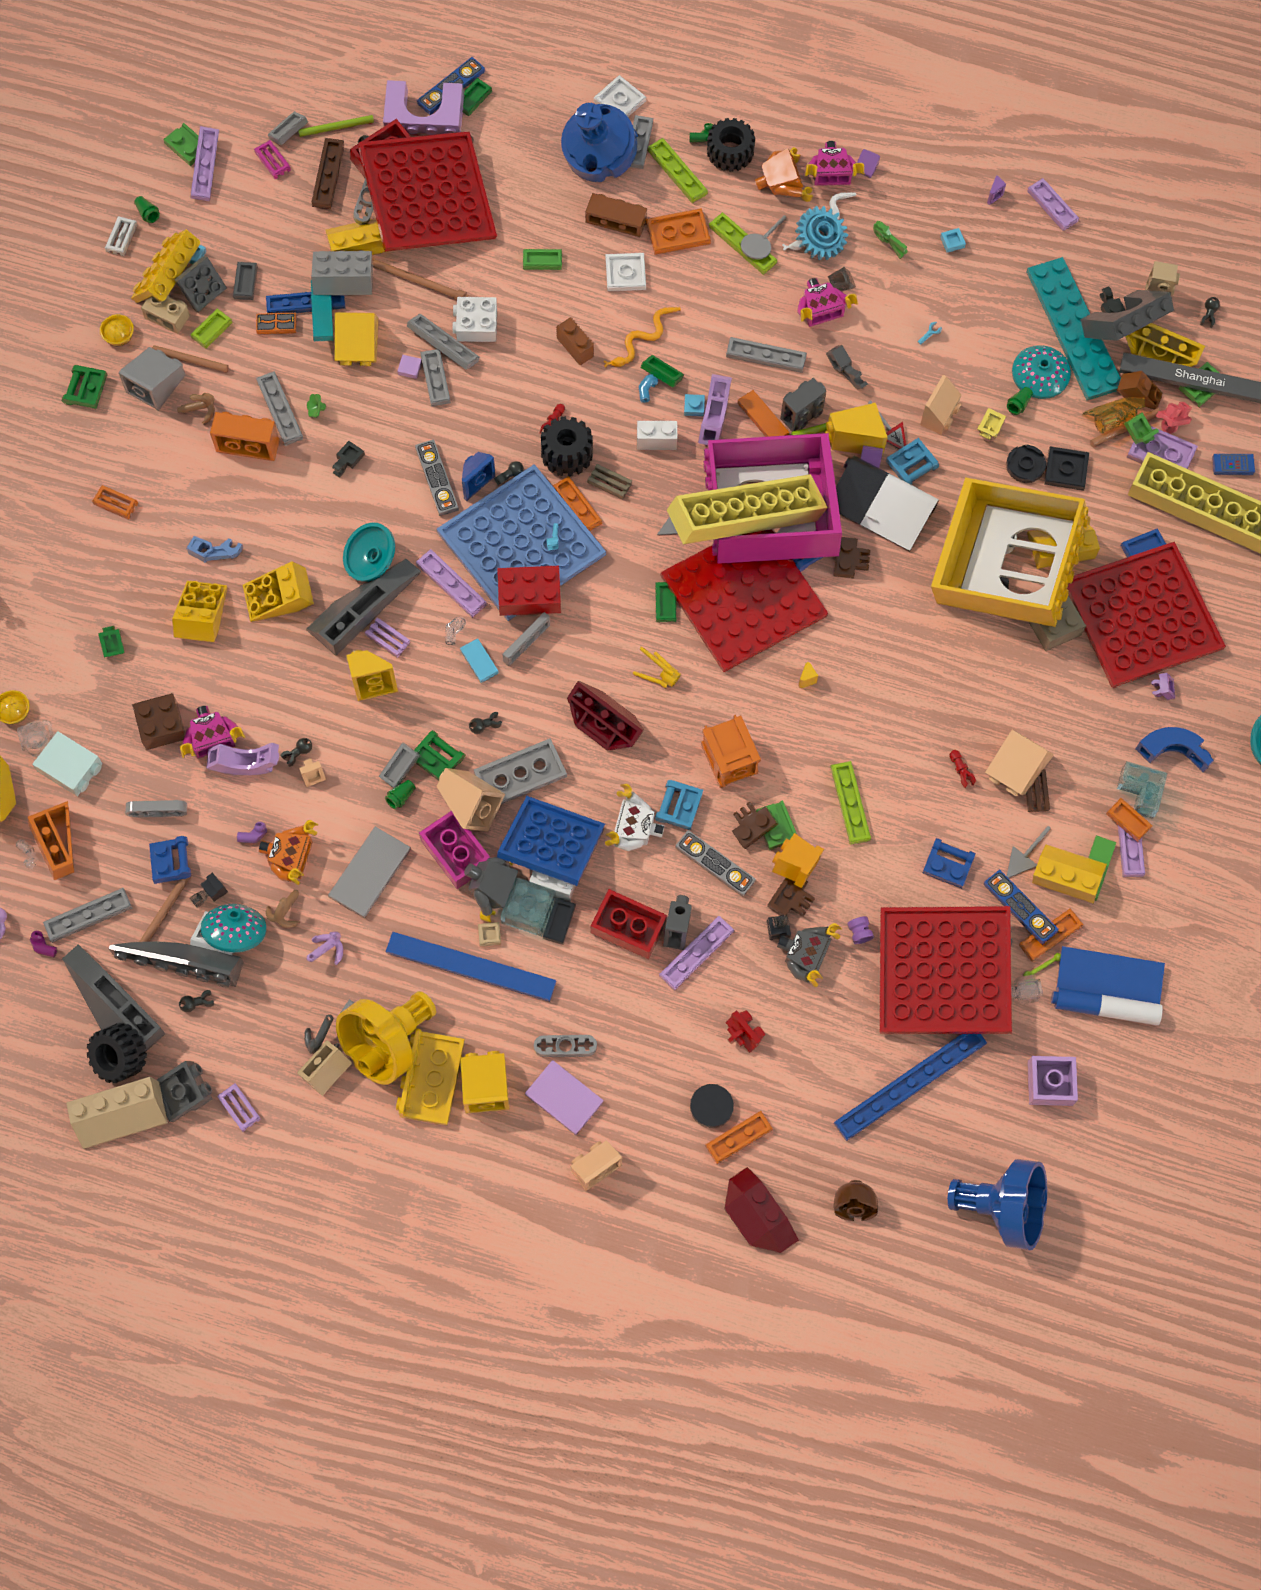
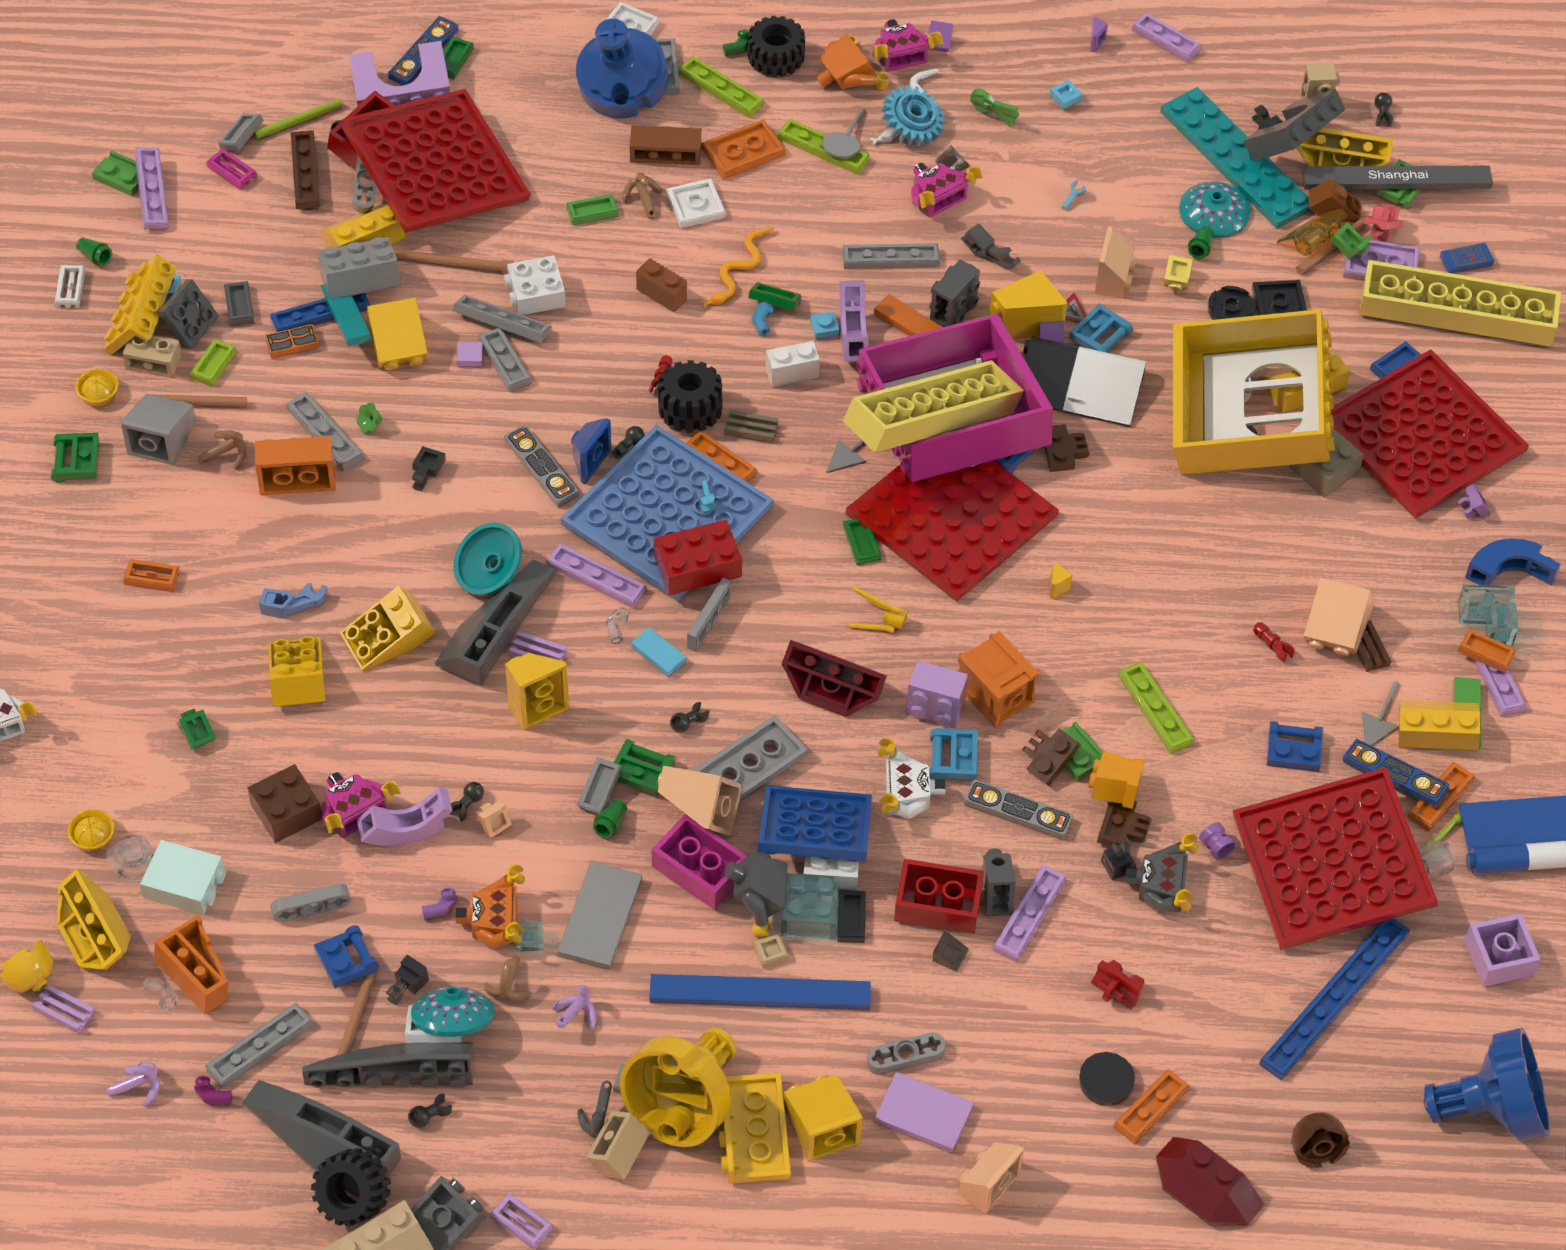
camera: 15 degrees left, 15 degrees down
(312, 877) = (531, 937): none -> clear light blue plate
(585, 243) = (641, 182): none -> medium nougat piece
(624, 970) = (949, 952): none -> clear smoke slope
(679, 753) = (936, 694): none -> lavender brick

